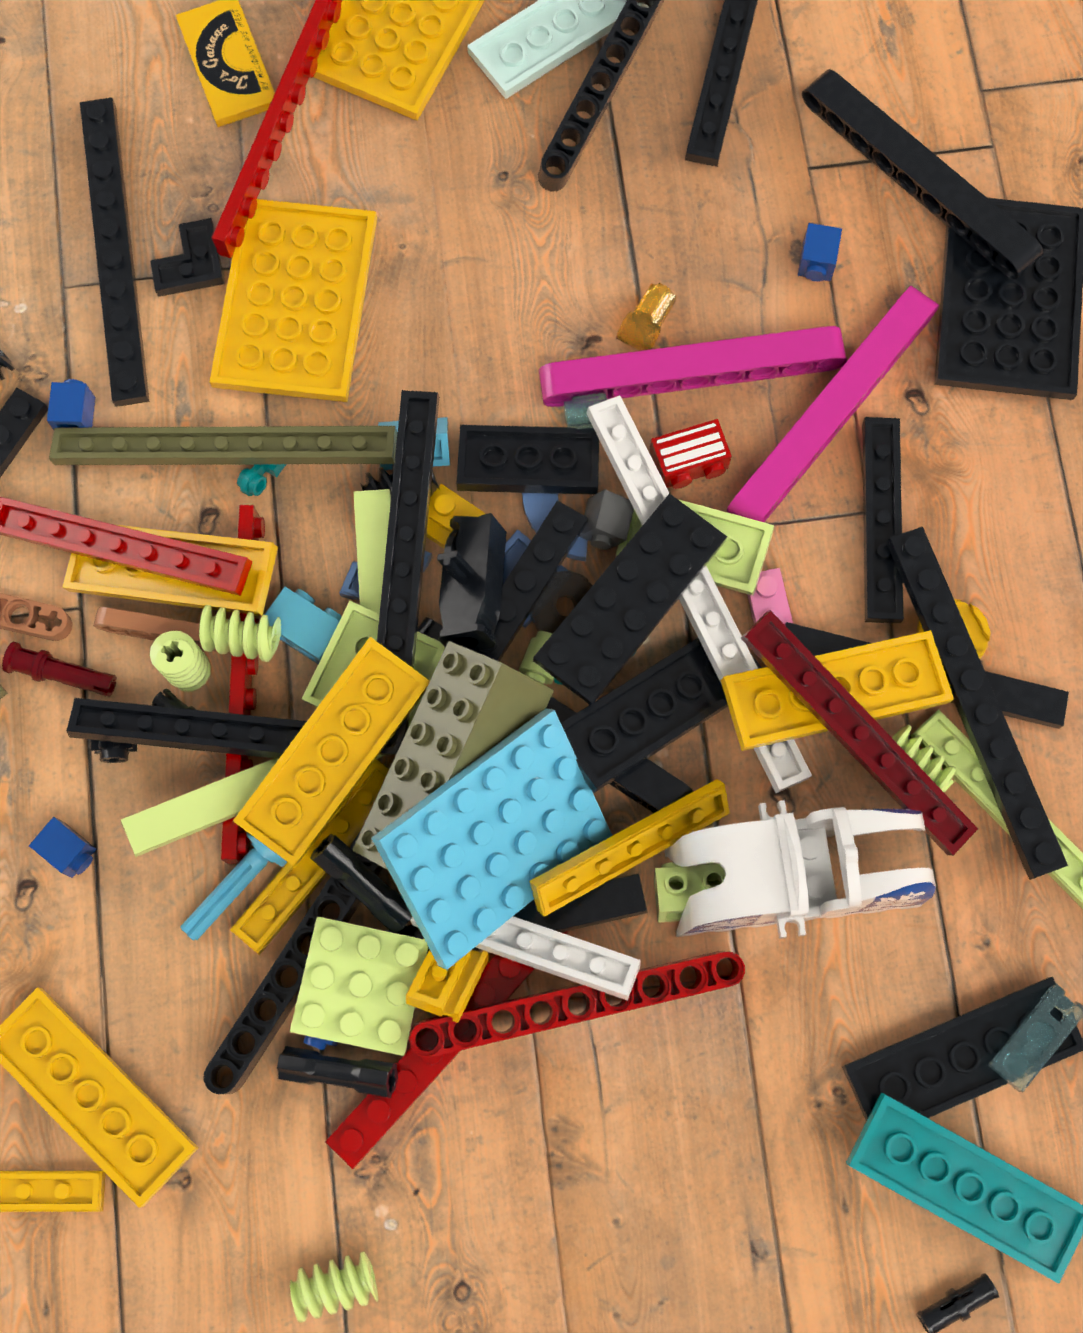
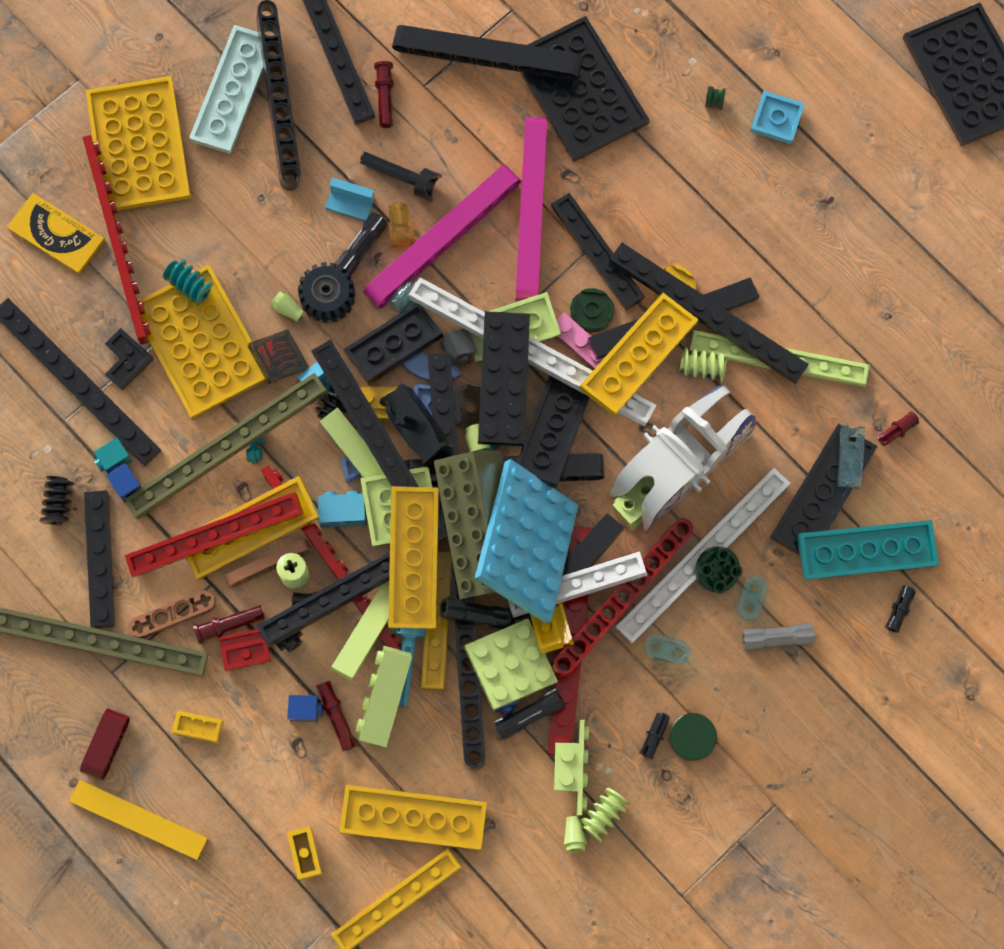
camera: 40 degrees left, 0 degrees up
(45, 717) = (244, 650): none -> red plate
(82, 363) = (111, 455): none -> teal brick
(97, 887) = (335, 713): none -> dark red pin
(167, 907) = (384, 696): none -> yellowish green brick
(237, 635) = (316, 534): yellowish green piece -> none
(273, 1285) = (574, 835): none -> yellowish green cone
(329, 211) = (187, 281): none -> teal piece
(336, 1185) = (569, 767): none -> yellowish green bracket
(371, 378) = (278, 356): none -> clear smoke tile
(430, 323) = (286, 306): none -> yellowish green cone
(484, 1226) = (655, 735): none -> black axle
(491, 339) = (326, 292): none -> black wheel
(534, 1268) = (693, 737): none -> dark green tile
(588, 1119) = (667, 648): none -> clear light blue plate
(605, 301) = (368, 234): none -> black axle
(610, 246) = (350, 199): none -> medium azure panel
(629, 847) = (593, 502): yellow tile -> none
(691, 454) = (476, 282): brick -> none
(716, 282) = (422, 182): none -> black piece
(732, 1024) = (684, 573): none -> white plate
(736, 1059) = (717, 569): none -> dark green tile
(758, 133) = (384, 85): none -> dark red pin
(758, 1136) = (751, 598): none -> clear light blue plate
(775, 1228) = (793, 635): none -> light grey axle
(819, 252) = (464, 130): blue brick -> none
(820, 591) = (592, 310): none -> dark green tile
(858, 732) = (663, 367): dark red plate -> none

